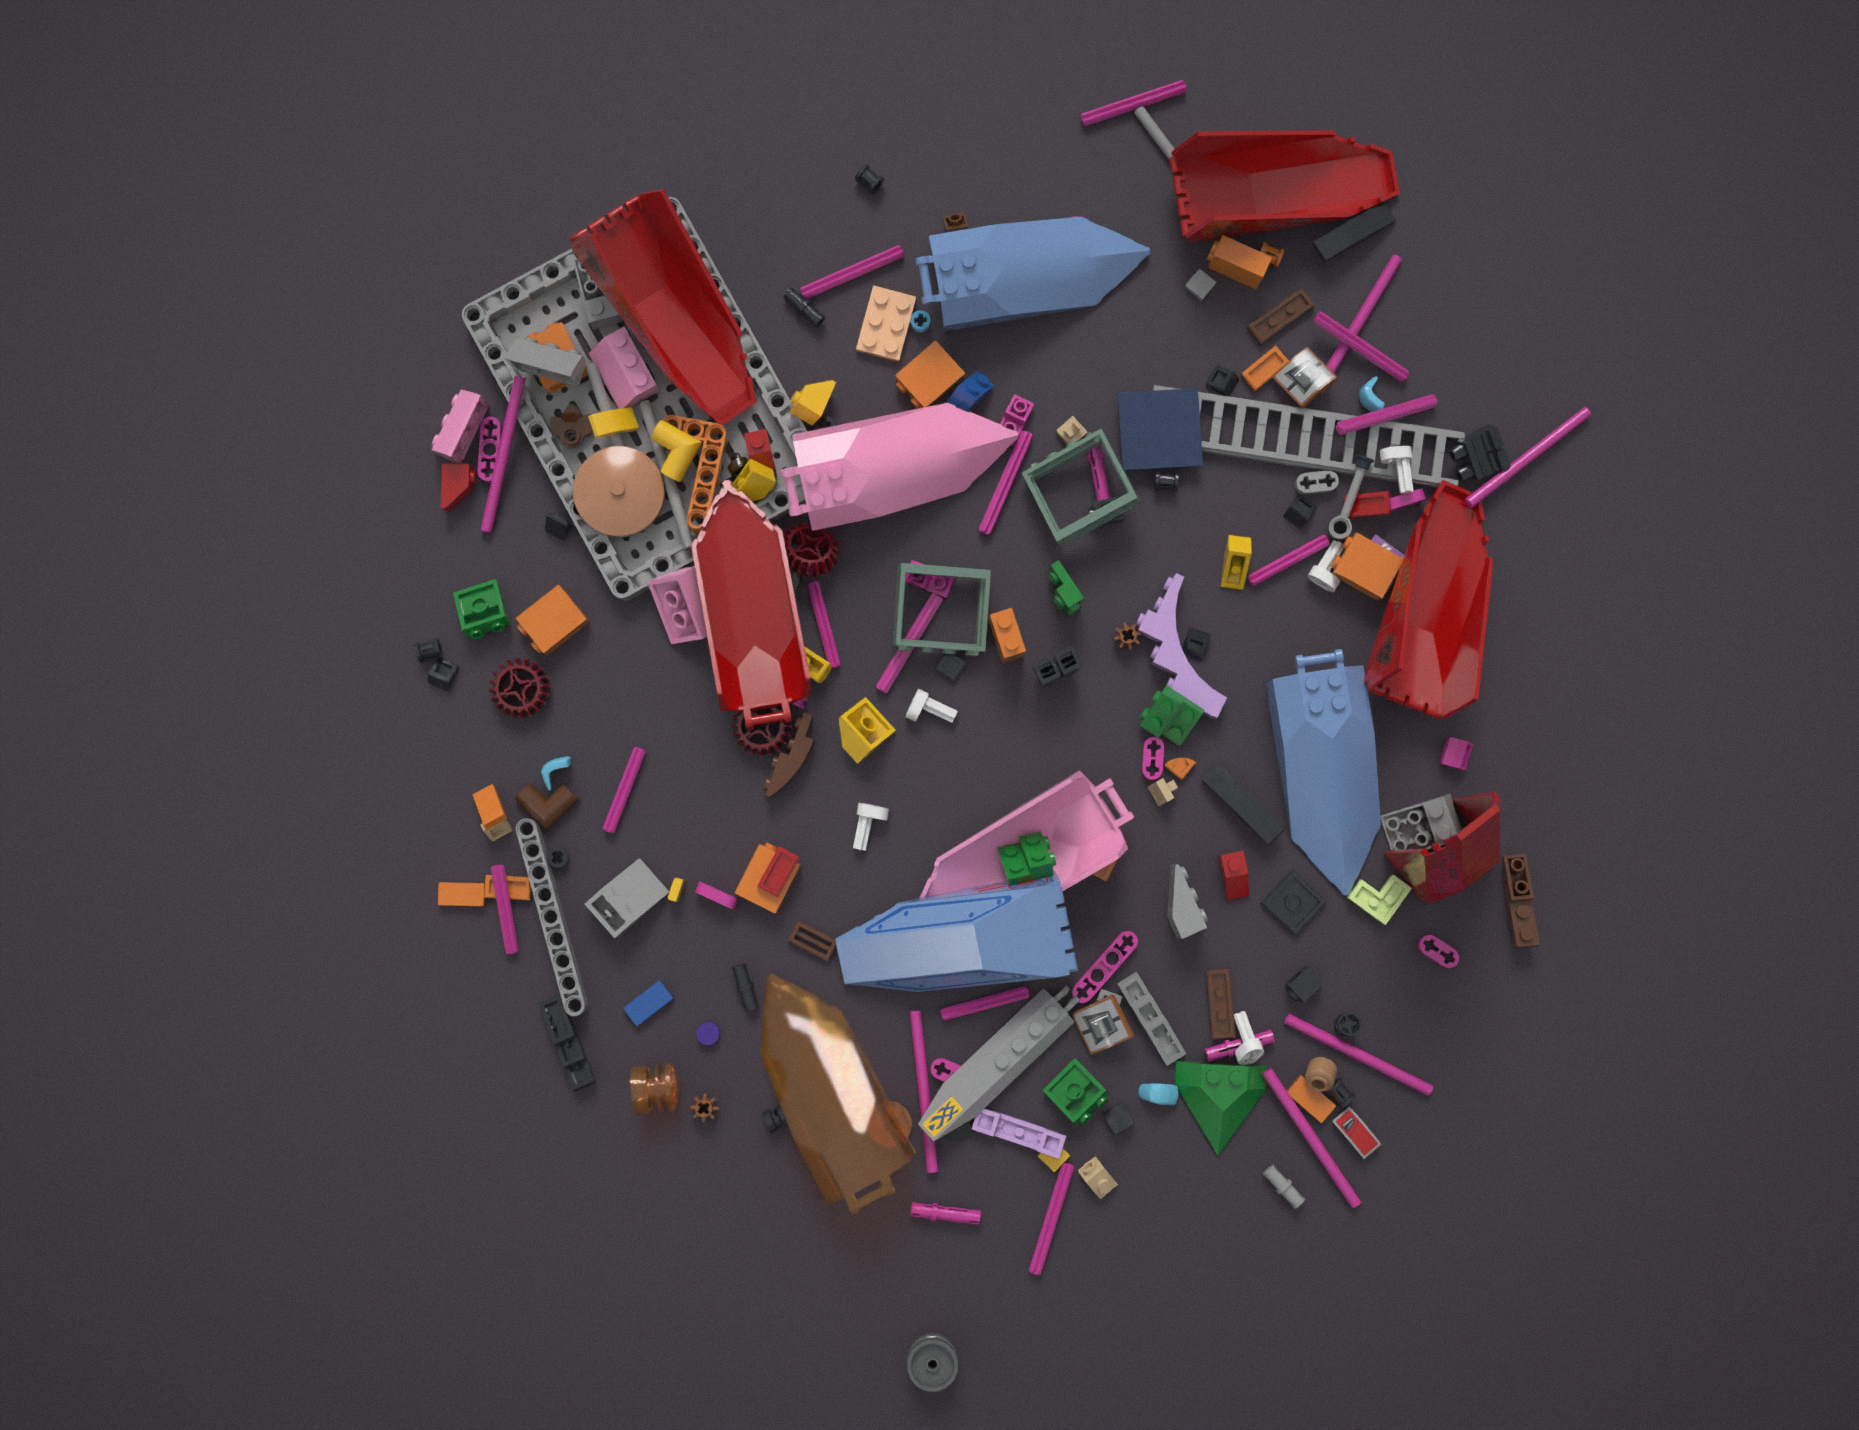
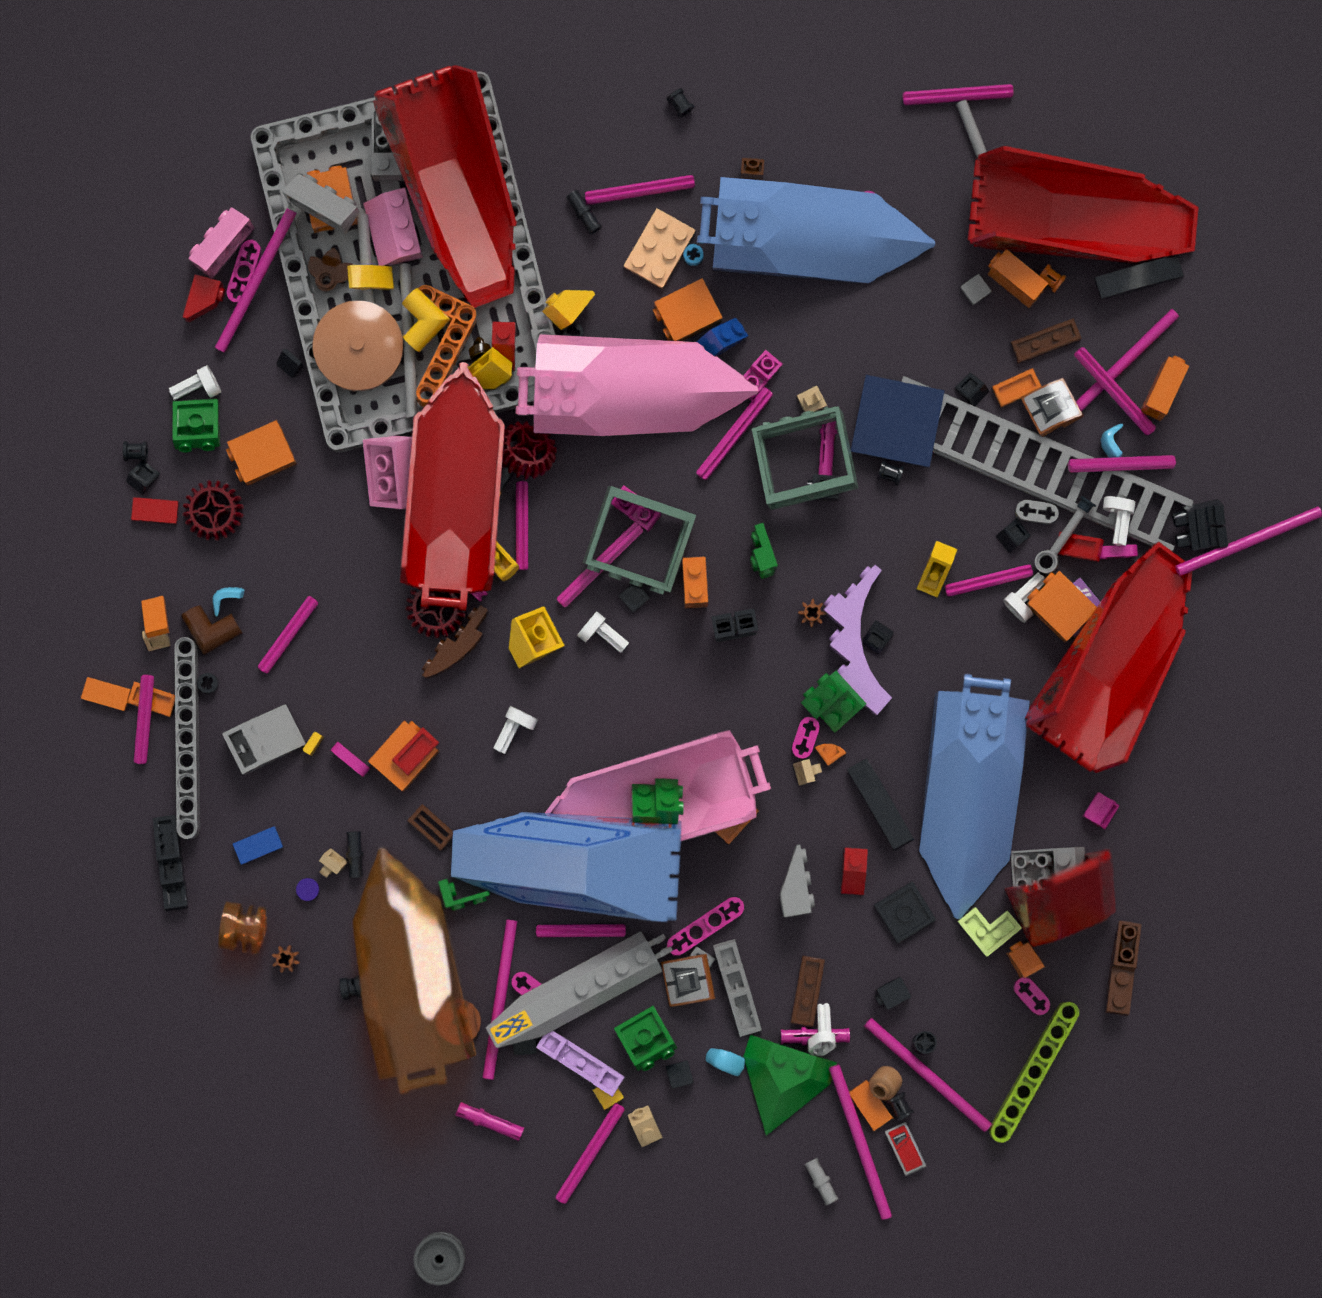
camera: 15 degrees right, 0 degrees up
(463, 703) = (155, 510): none -> red tile
(477, 562) = (203, 378): none -> white piece
(725, 1001) = (332, 863): none -> tan tile
(846, 1000) = (448, 891): none -> green bracket
(1409, 330) = (1165, 387): none -> orange brick
(1423, 918) = (1024, 959): none -> orange slope
(1463, 1036) = (1033, 1083): none -> lime beam

